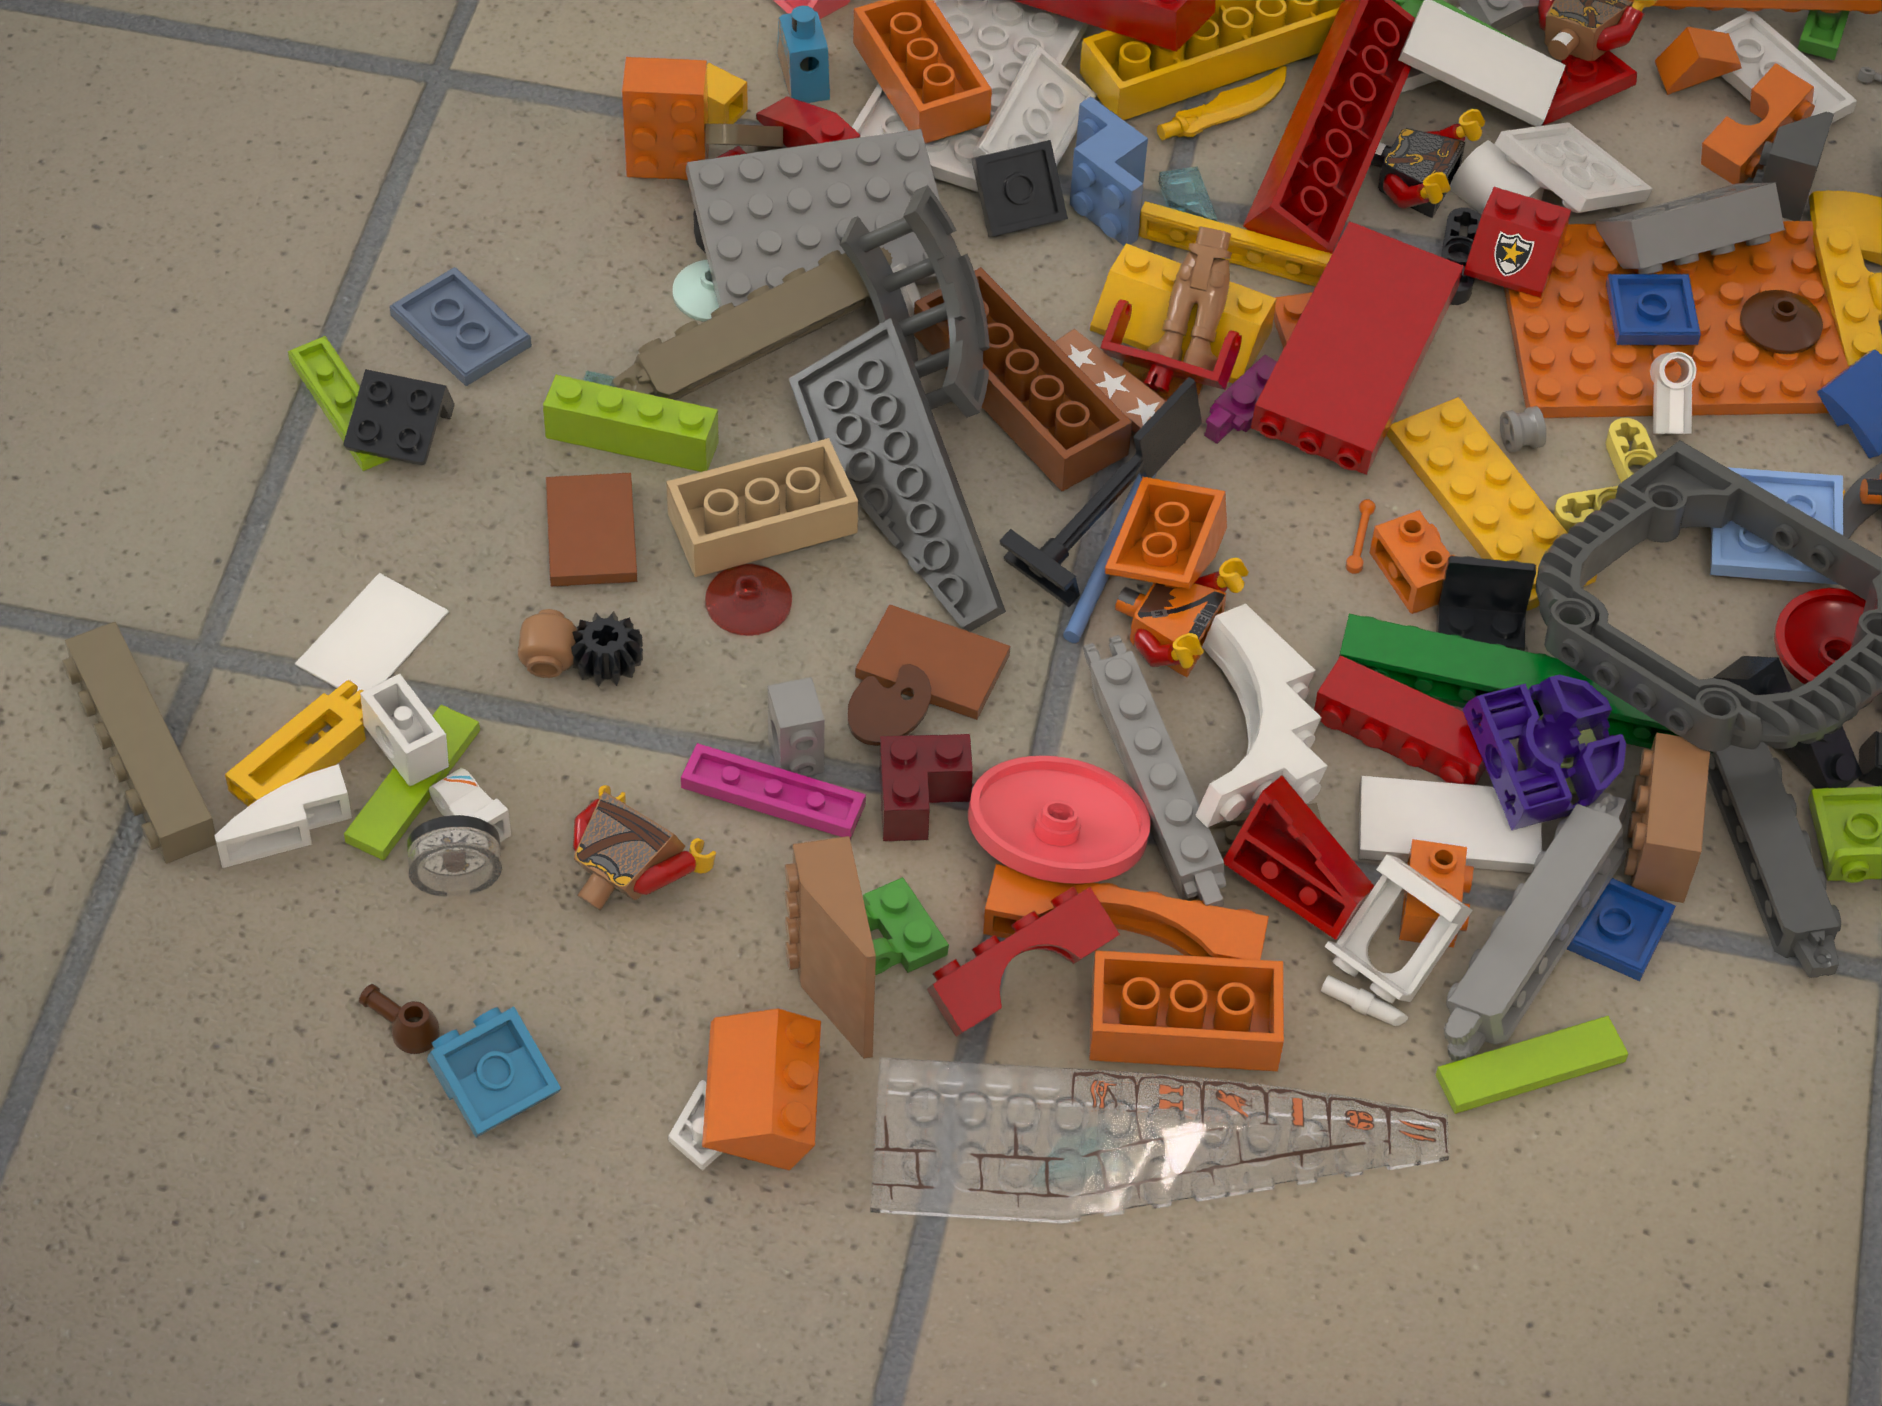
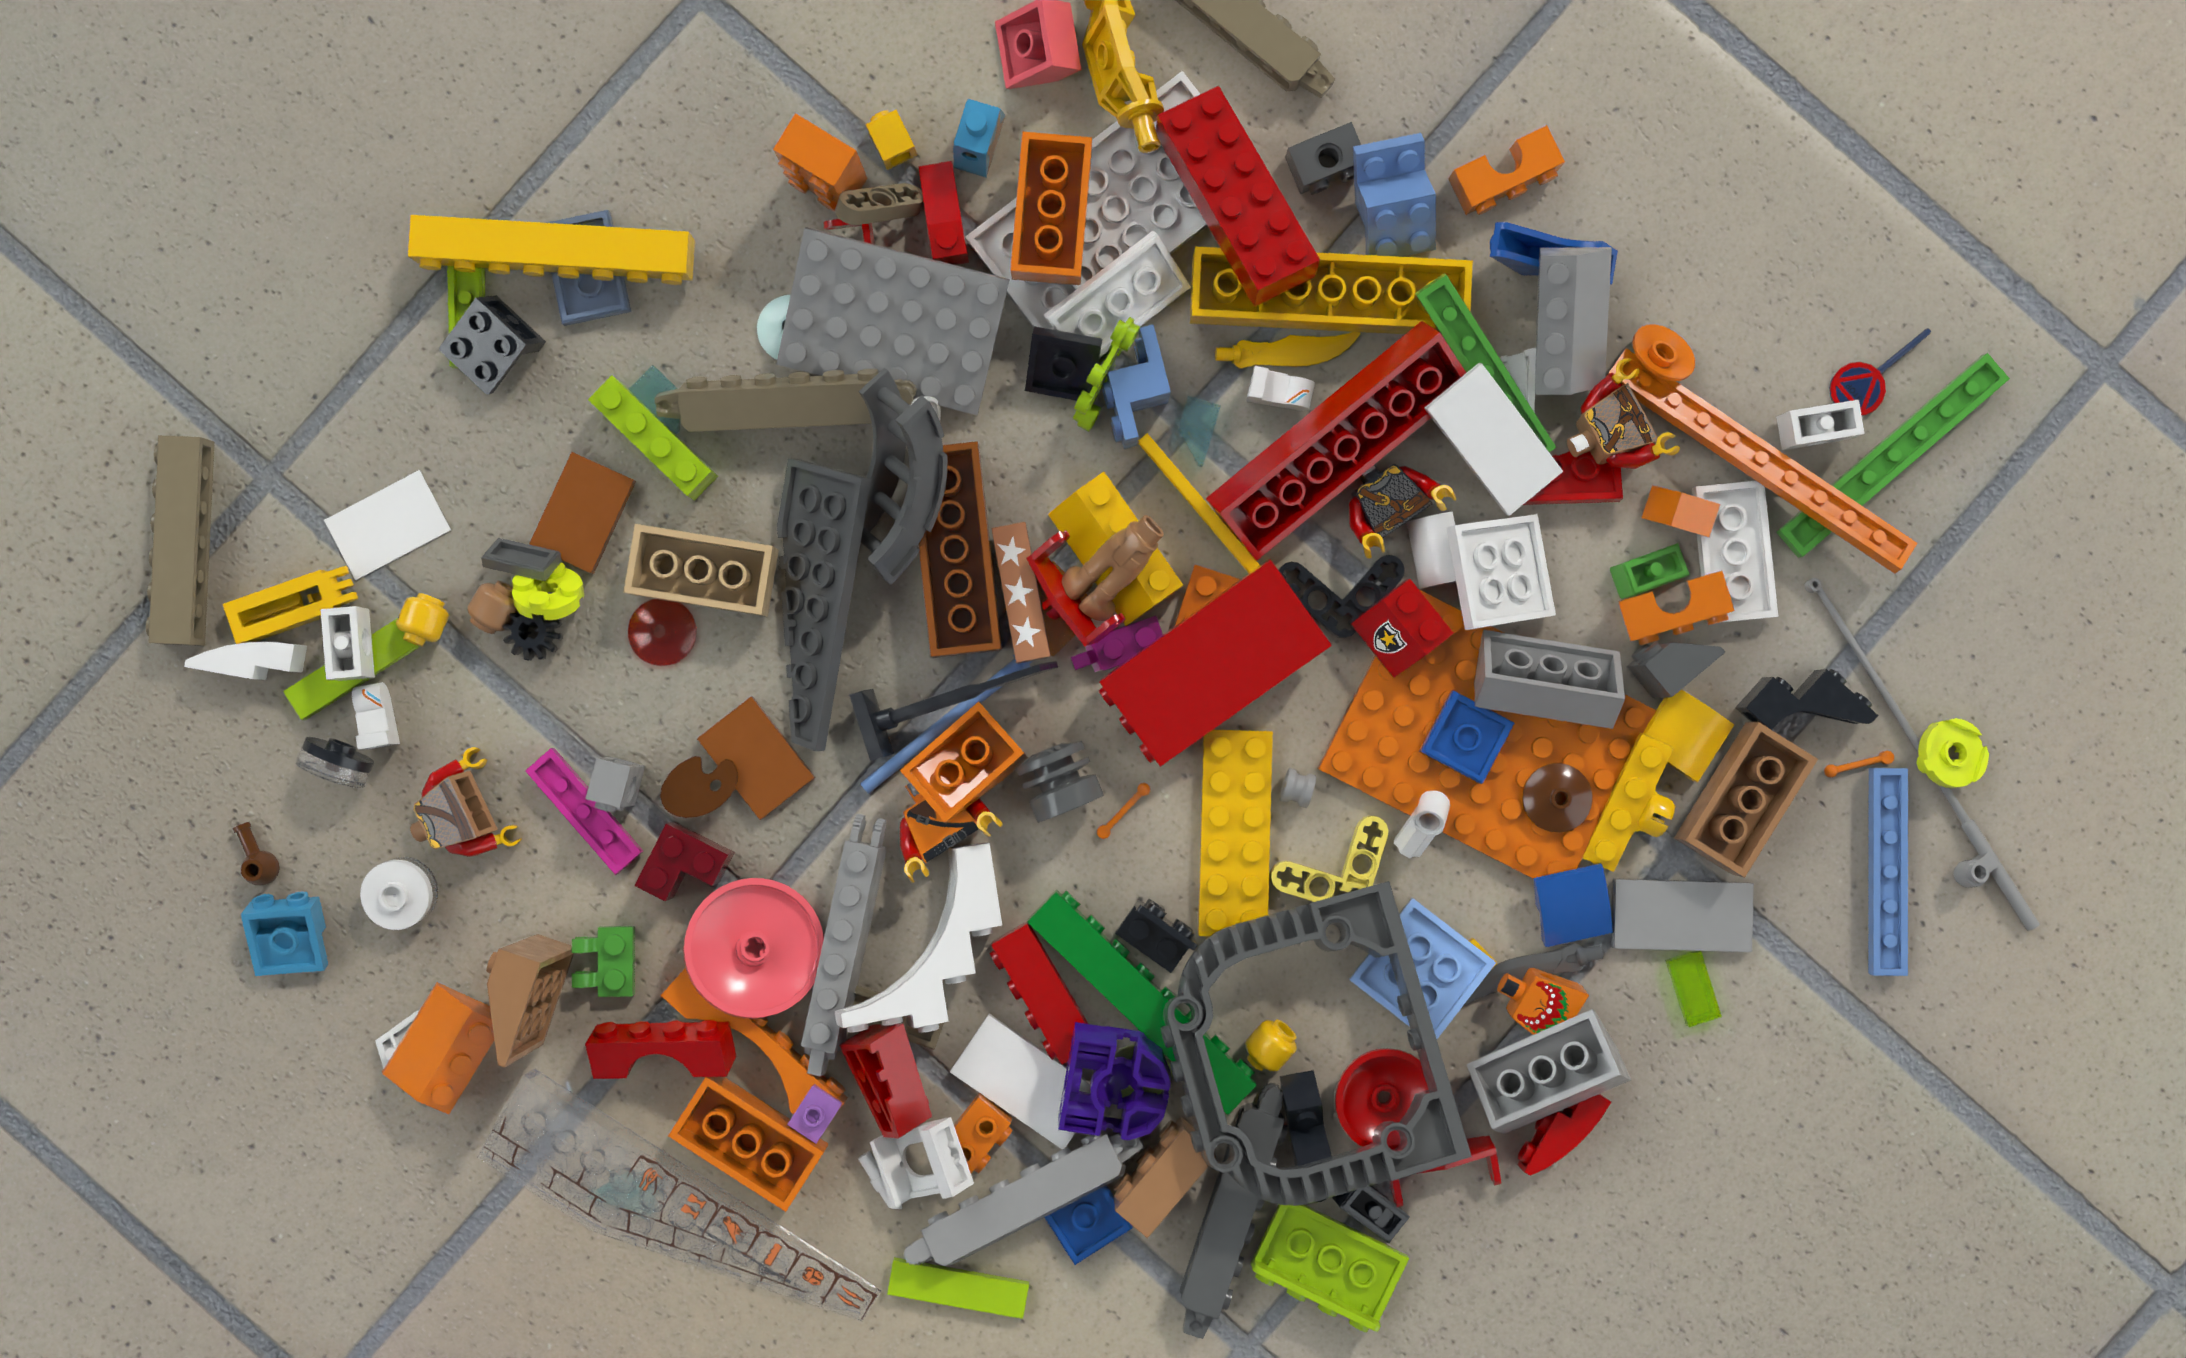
camera: 25 degrees right, 35 degrees up
(418, 306) = (551, 248): none -> yellow brick
(472, 687) = (422, 619): none -> yellow head
(552, 584) = (521, 559): none -> dark grey tile
(603, 593) = (531, 594): none -> neon yellow plate
(605, 965) = (399, 893): none -> white piece
(1072, 109) = (1086, 410): none -> lime plant
(1243, 131) = (1280, 389): none -> white leg
(1244, 934) = (814, 1113): none -> medium lavender bracket
(1278, 515) = (1059, 781): none -> dark grey wheel
(1411, 559) = (1142, 862): orange brick -> none
(1685, 649) = (1271, 1045): none -> yellow head
(1700, 123) = (1649, 571): none -> bright green slope

